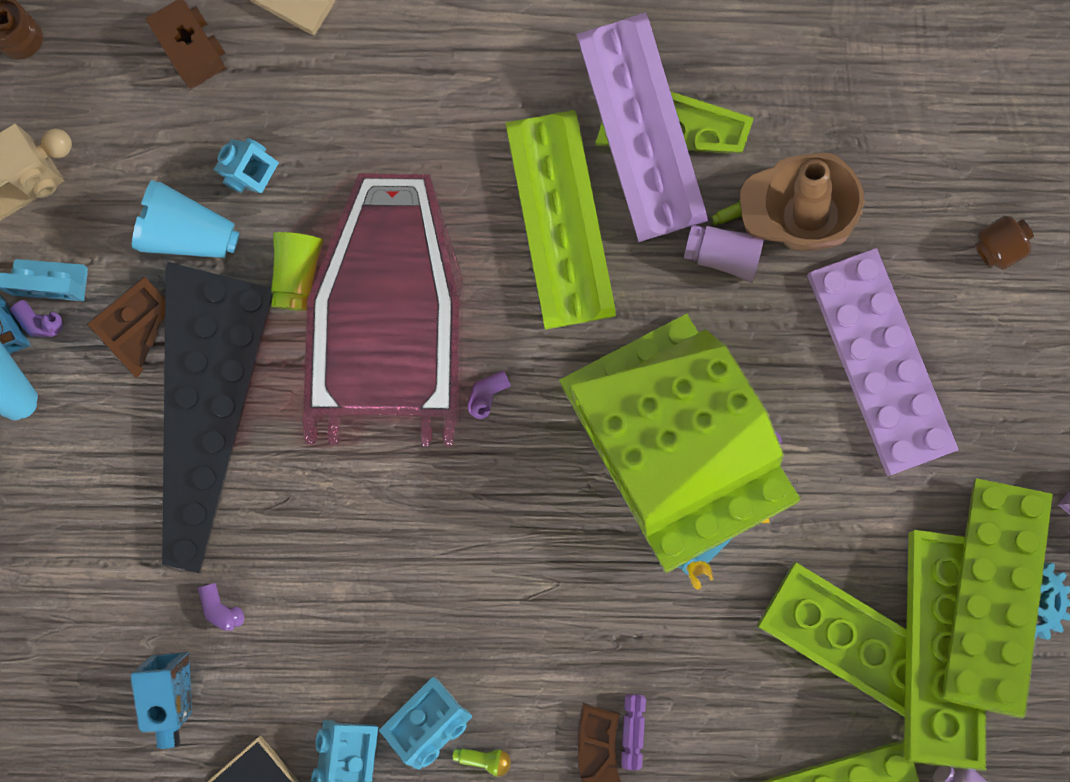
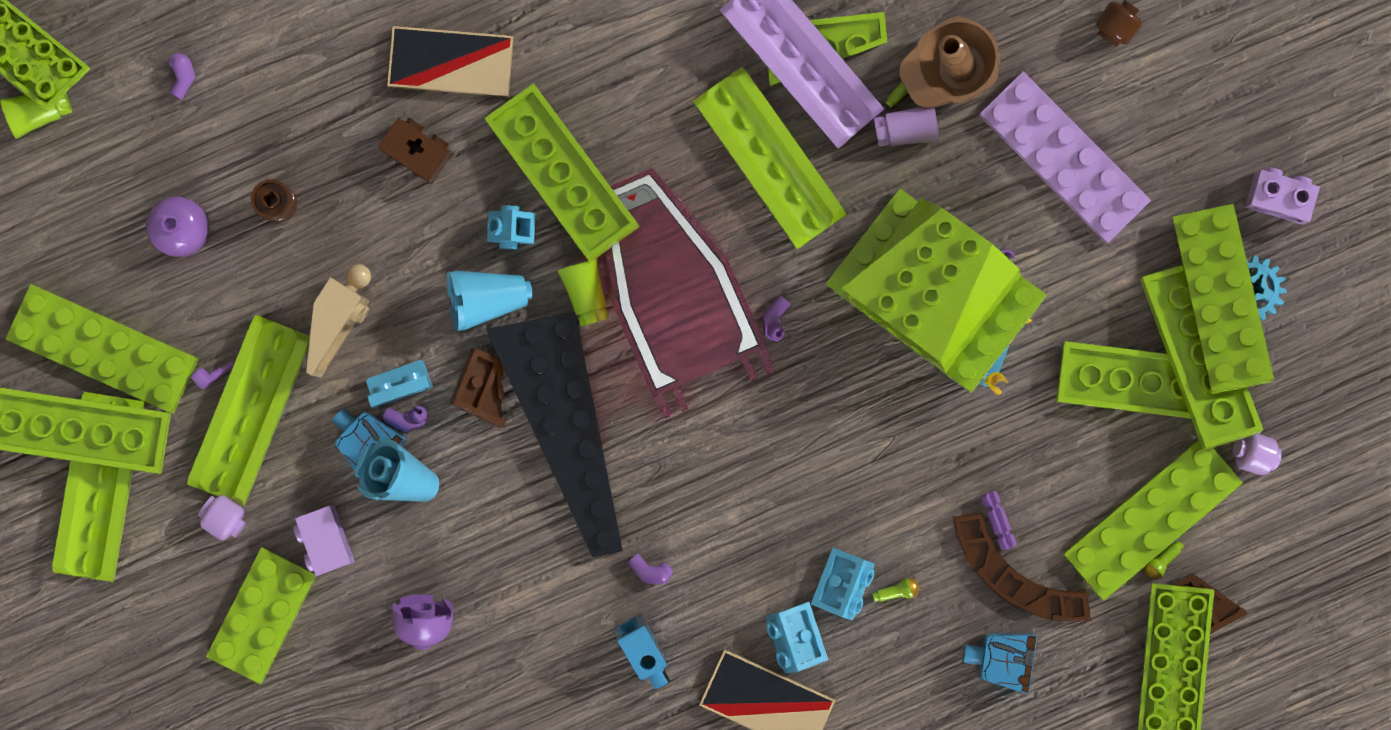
camera: 20 degrees left, 5 degrees up
(327, 134) = (561, 173): none -> lime plate

